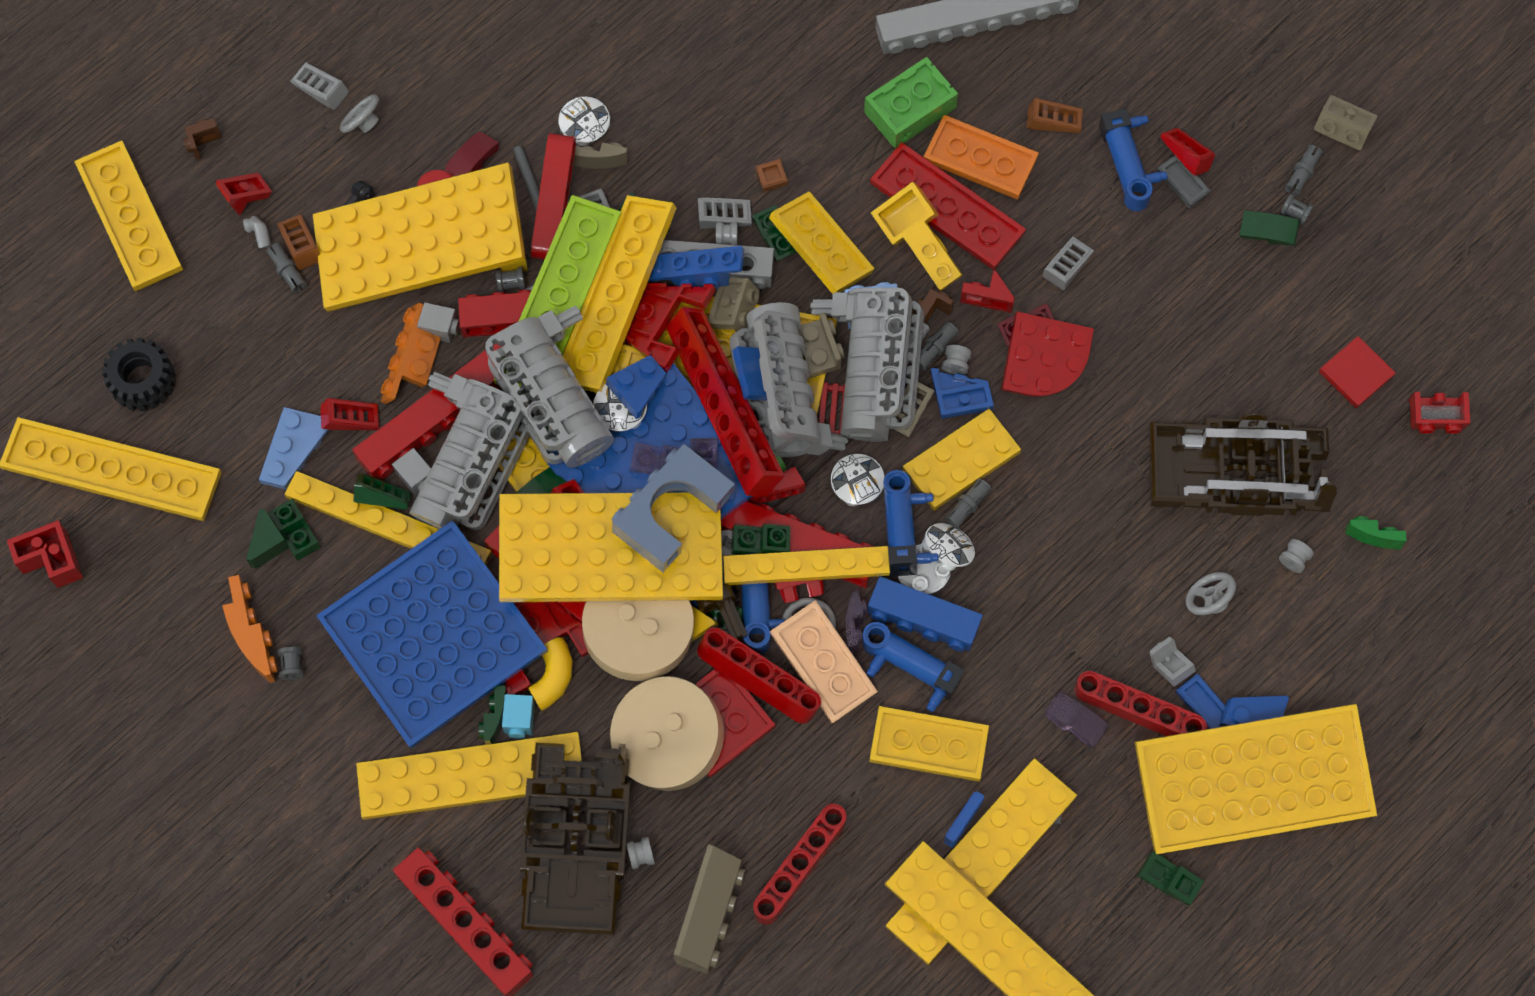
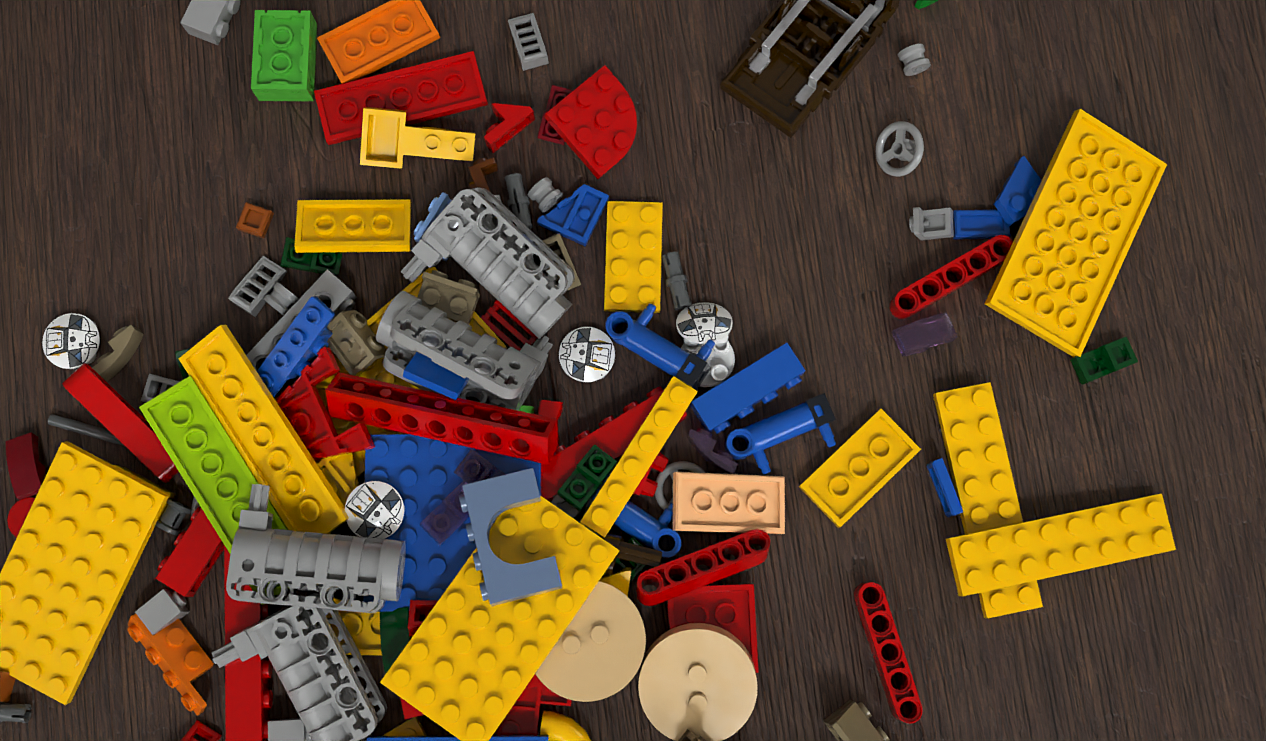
camera: 60 degrees left, 10 degrees up
(637, 384) = (368, 482): blue wing -> none

